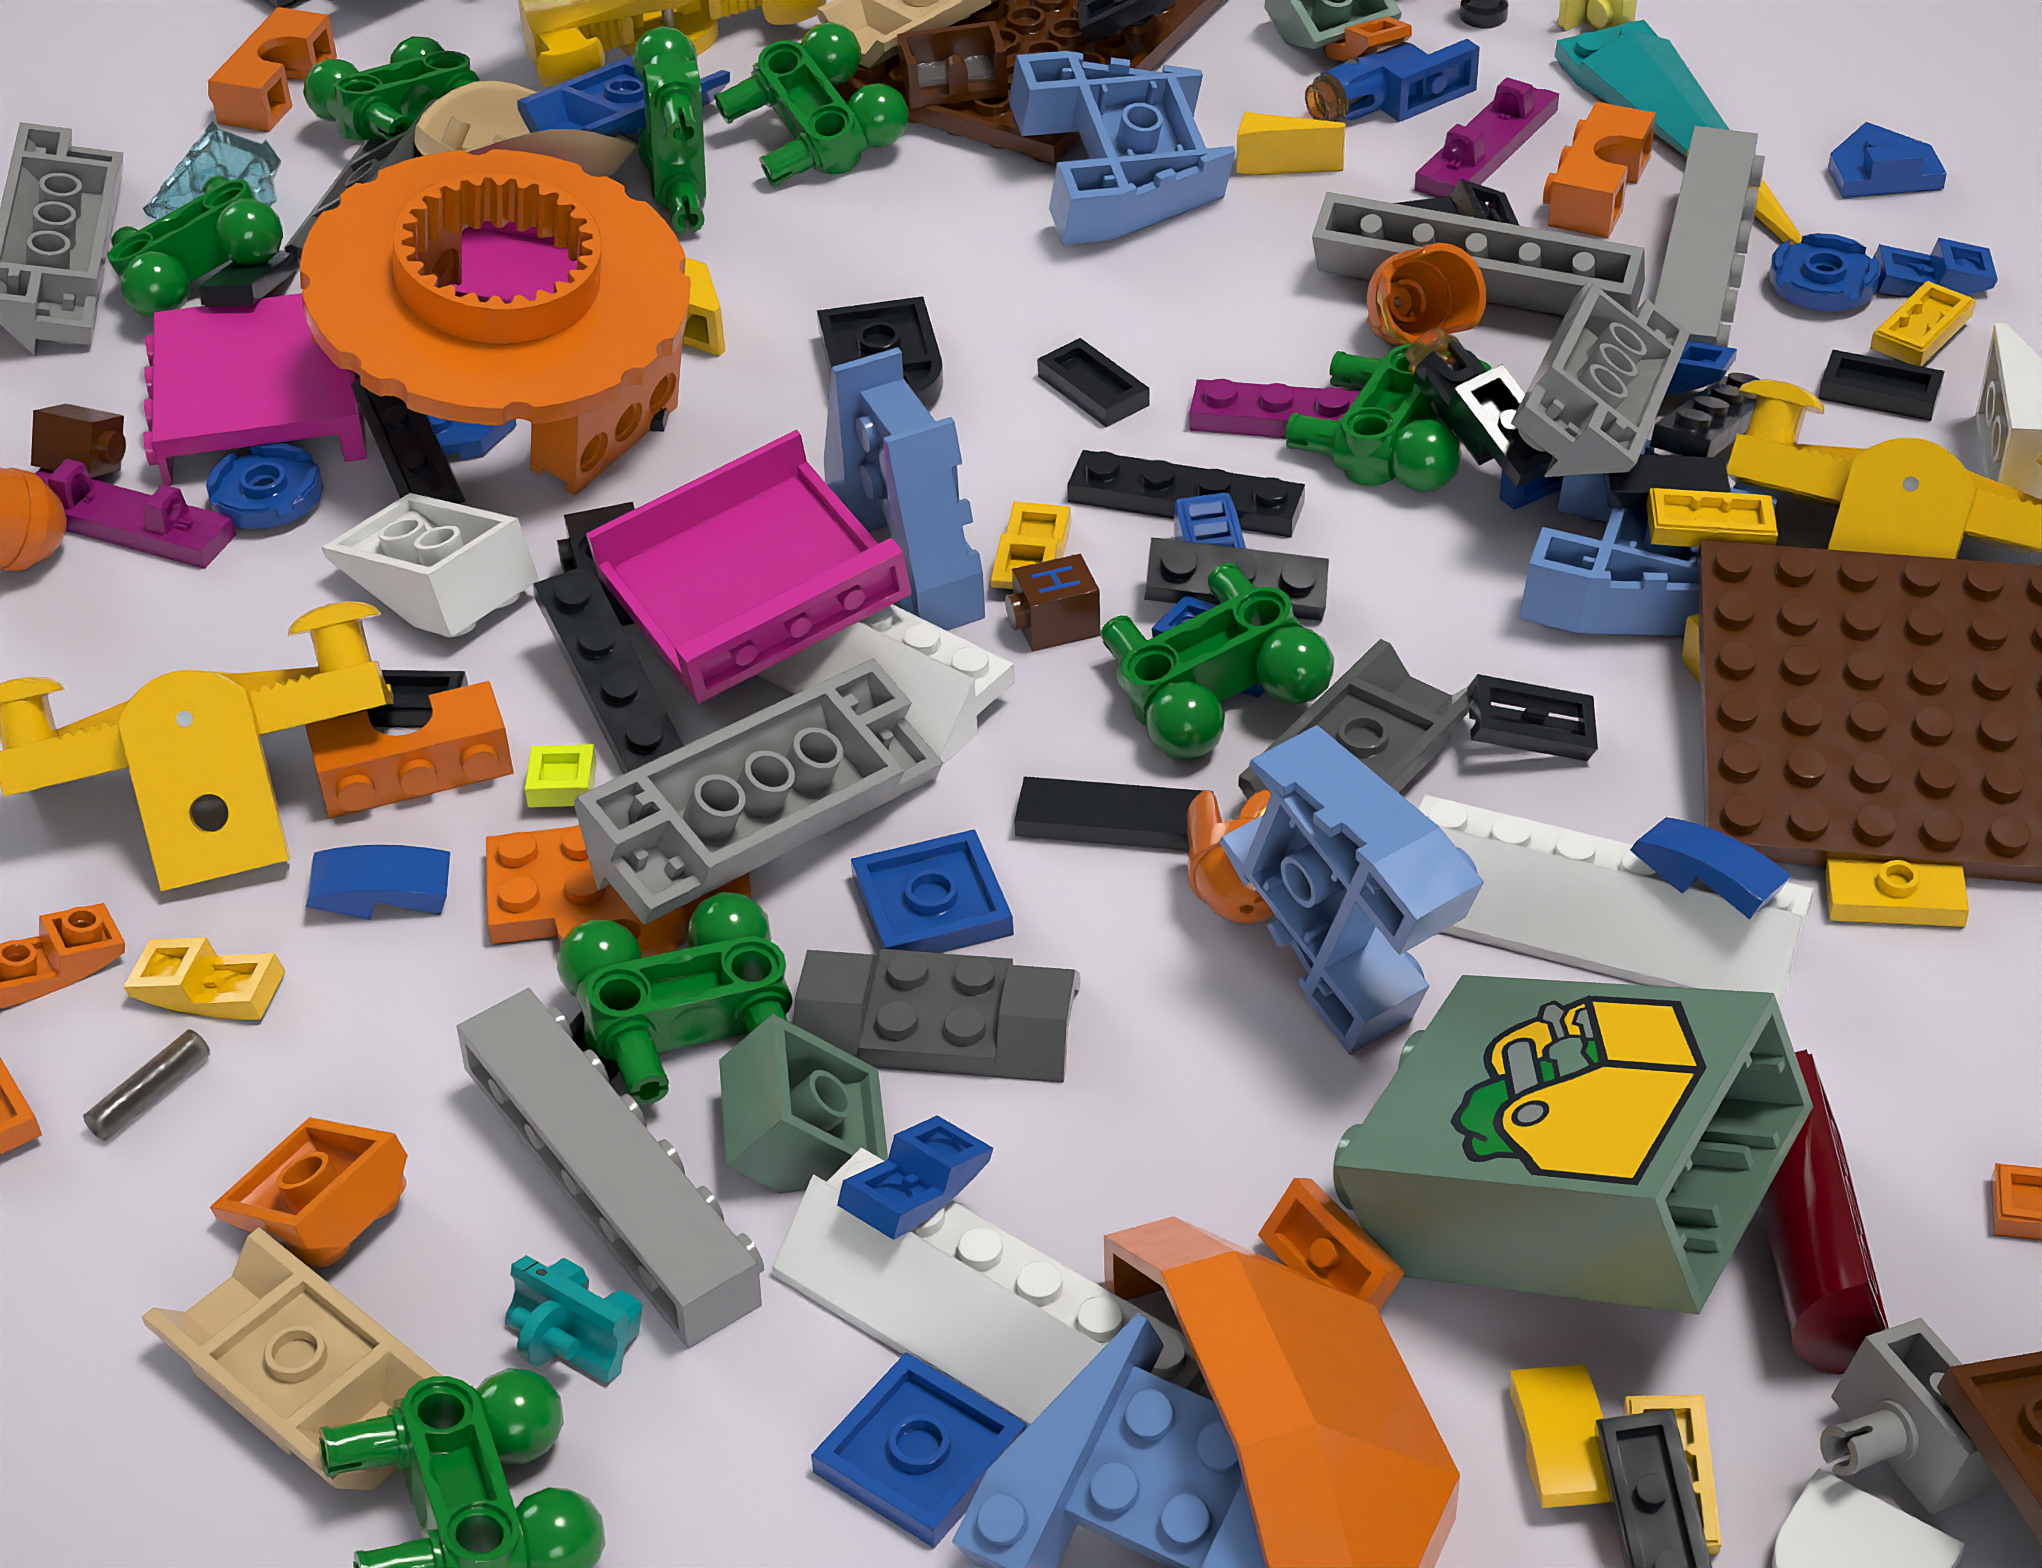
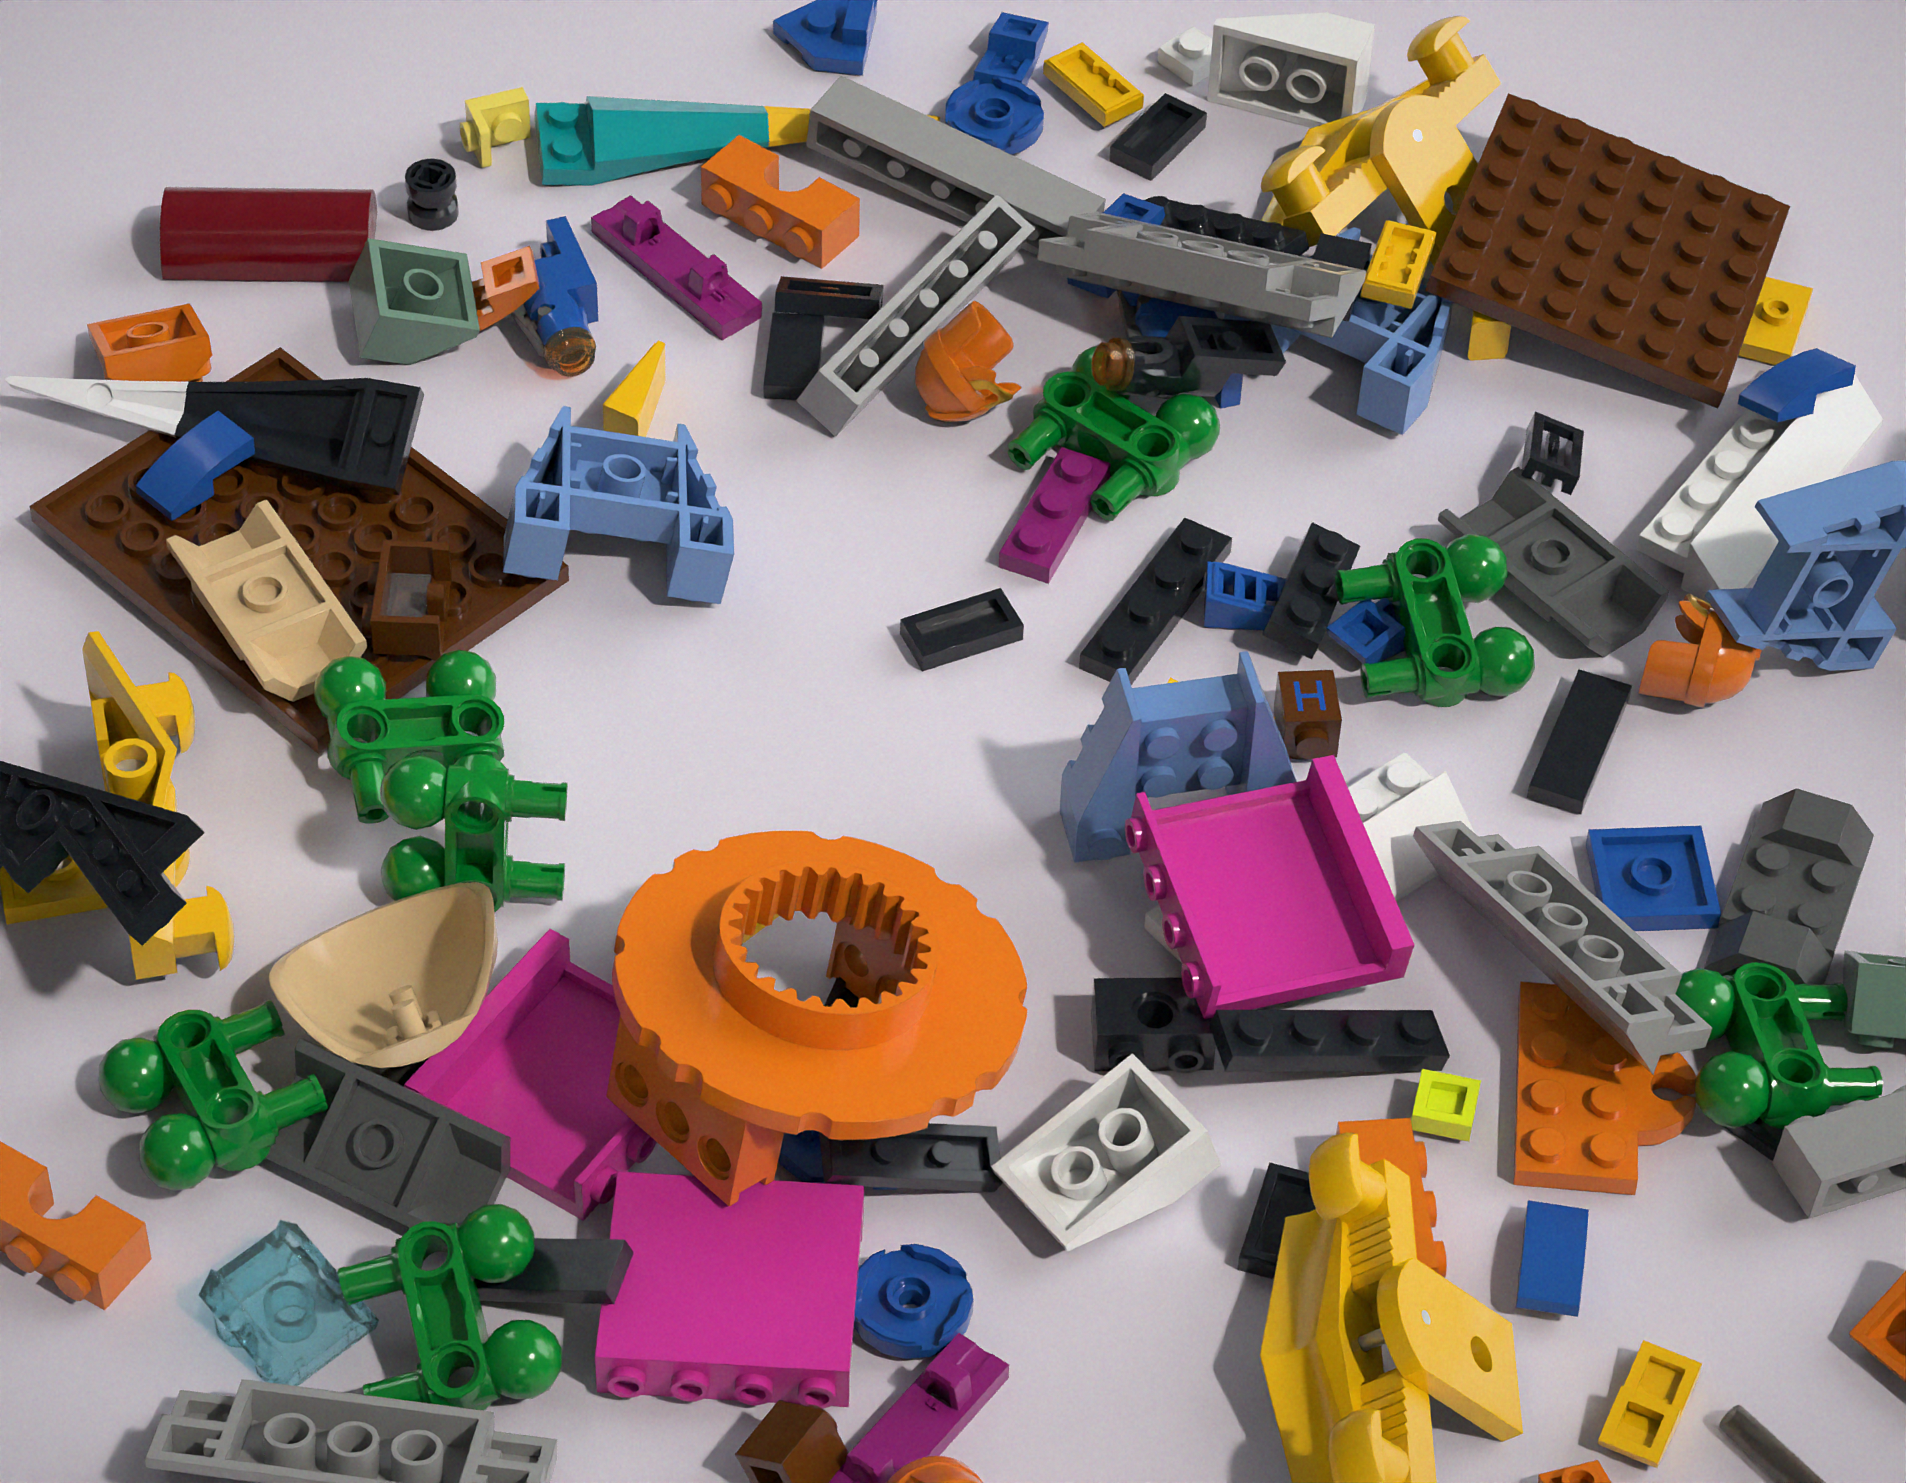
camera: 80 degrees left, 5 degrees up
(601, 101) = (334, 894): blue piece -> none
(881, 326) = (872, 769): black plate -> none

